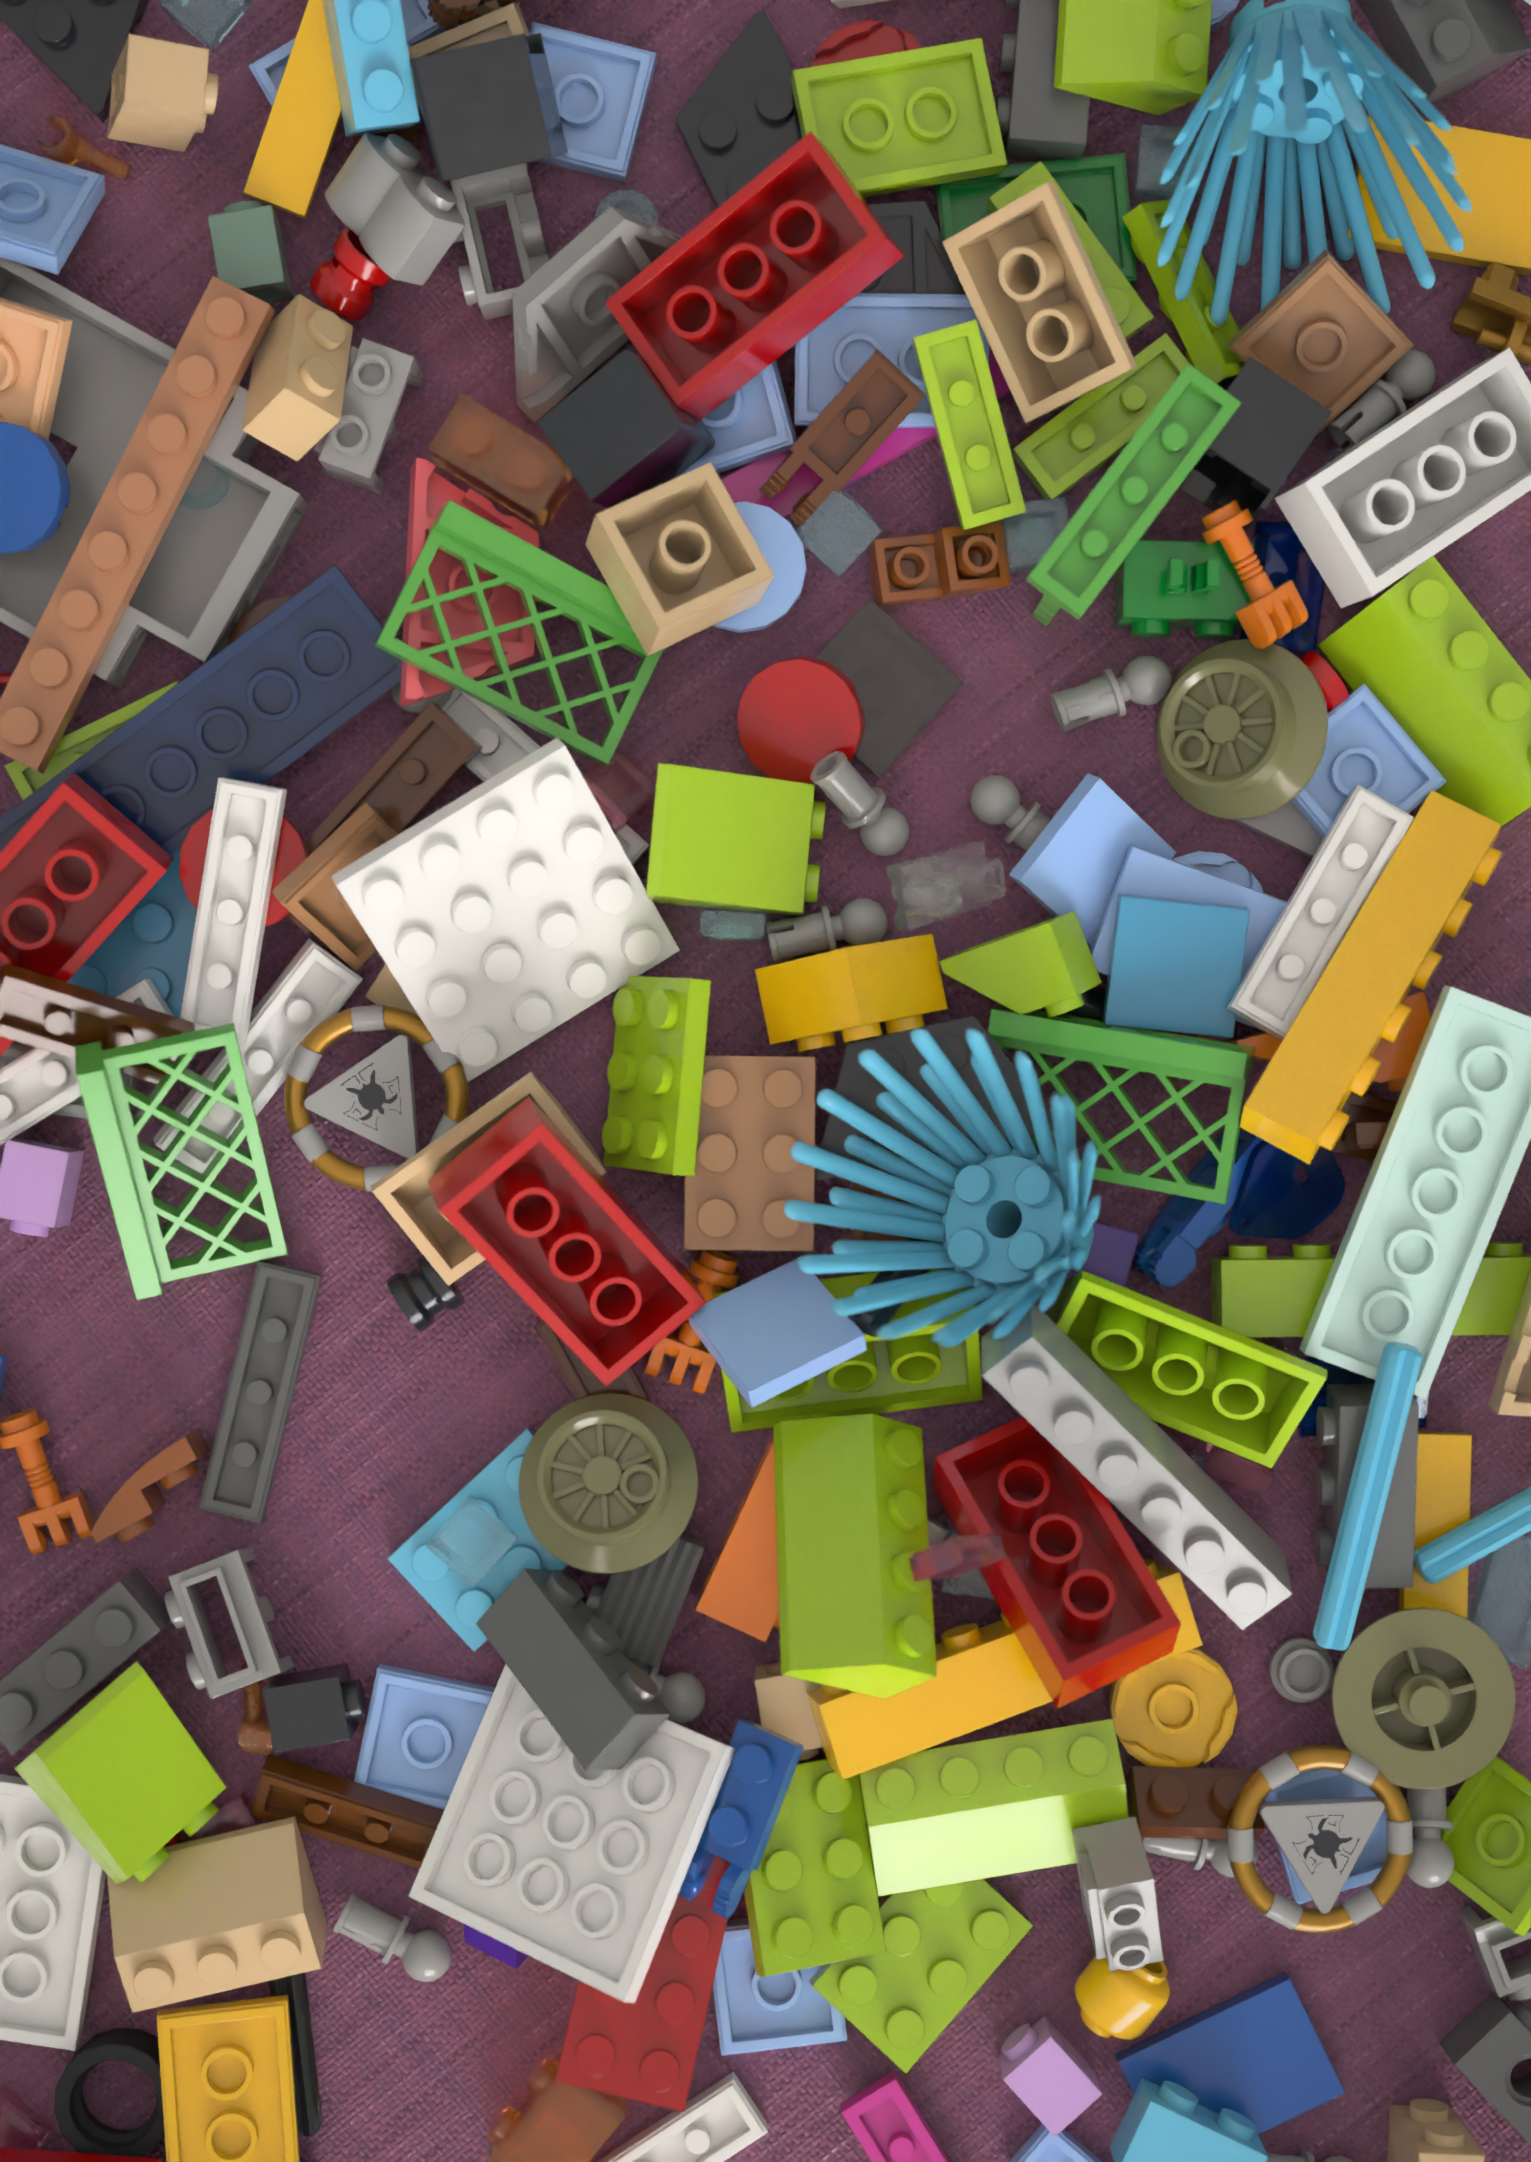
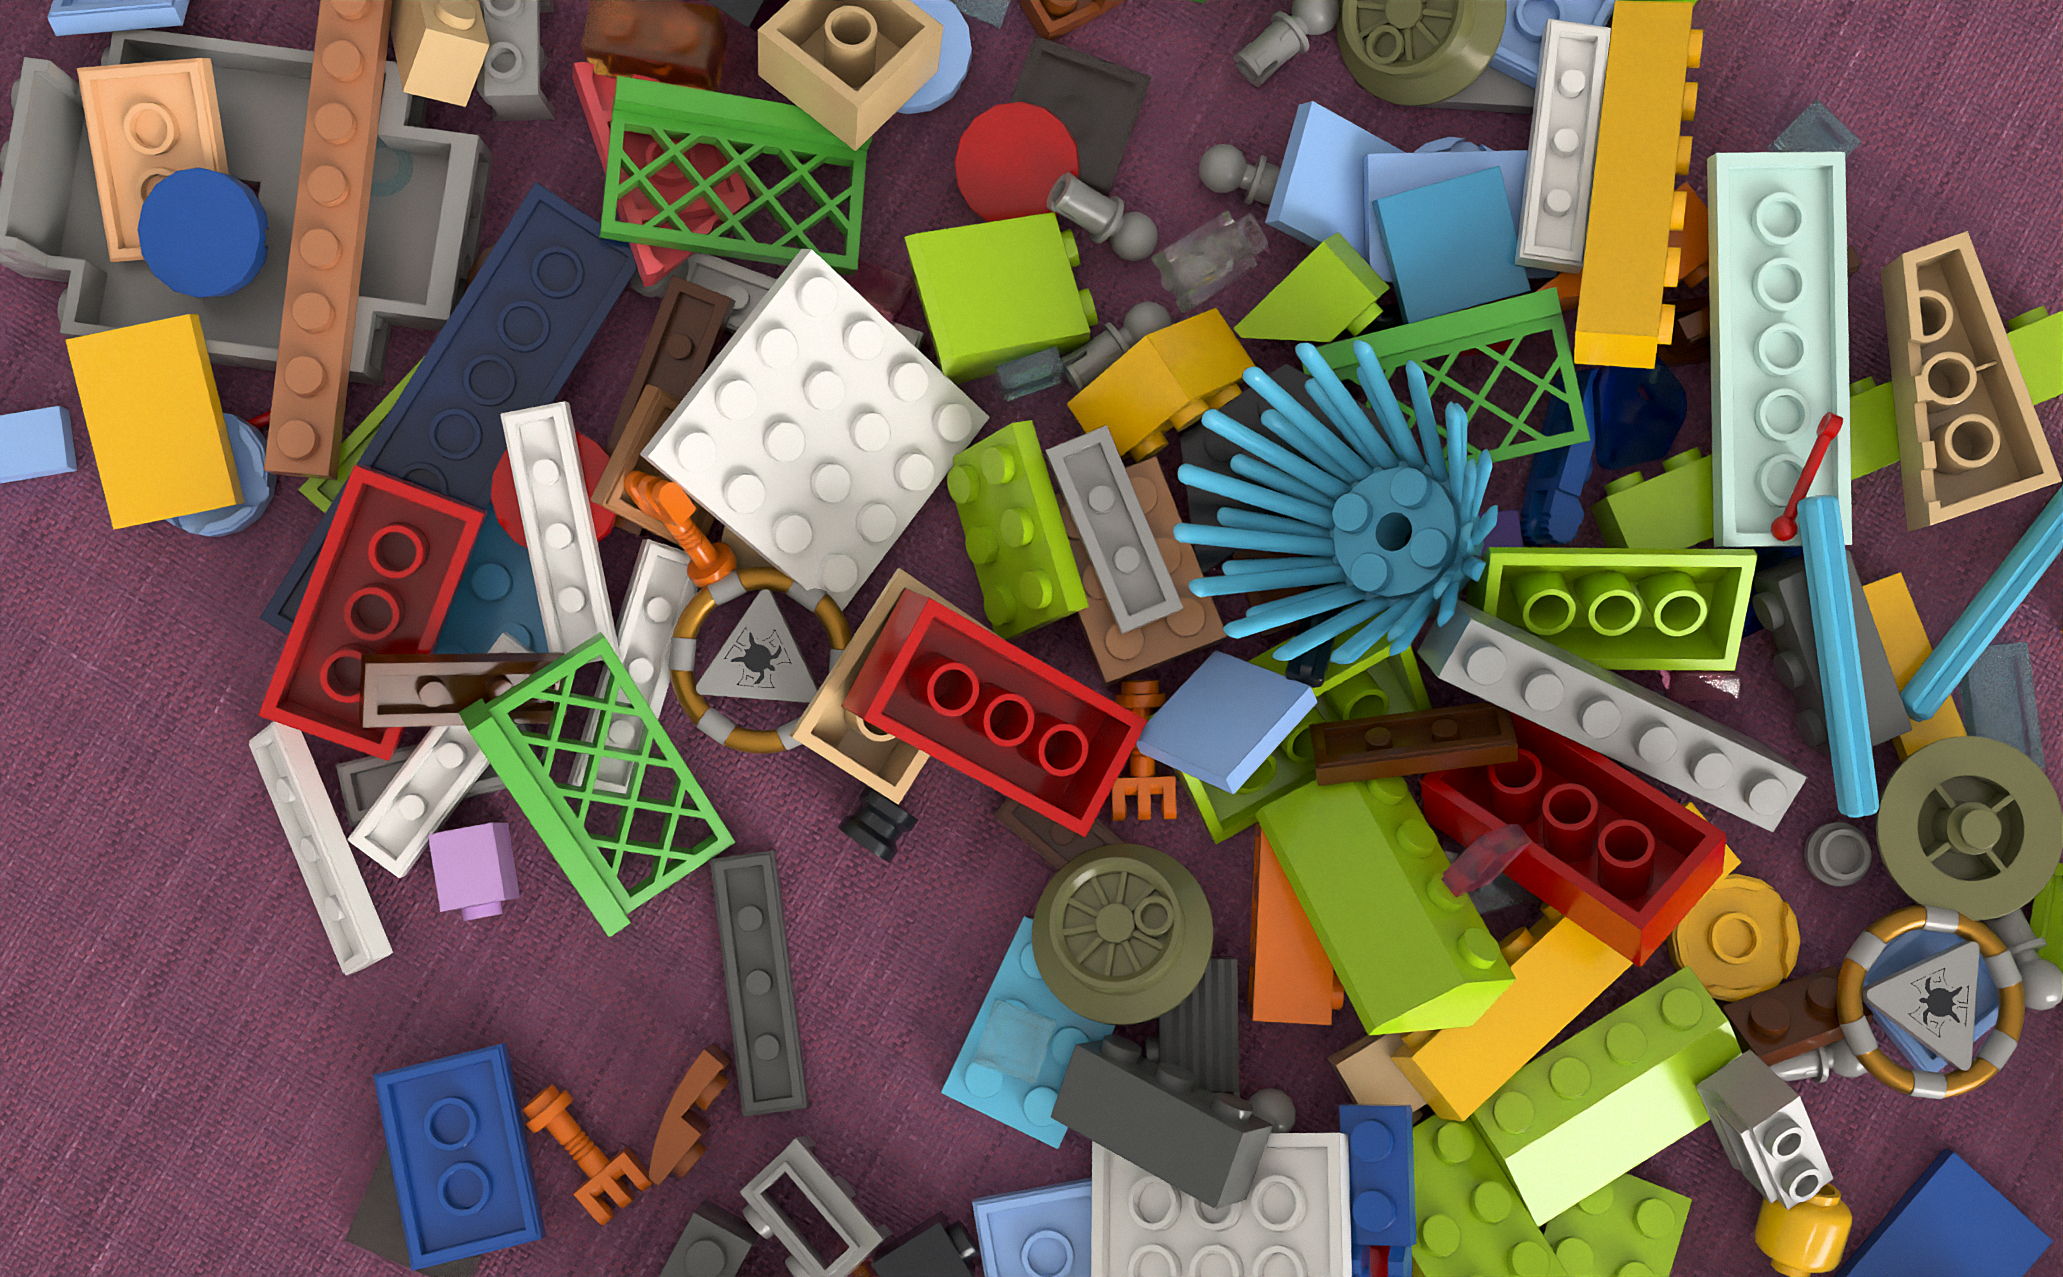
camera: 20 degrees left, 5 degrees down
(362, 986) = (671, 506): none -> orange hinge
(744, 1116) = (1114, 530): none -> light grey plate
(939, 1419) = (1413, 743): none -> reddish brown tile
(1367, 1359) = (1785, 526): none -> red hinge

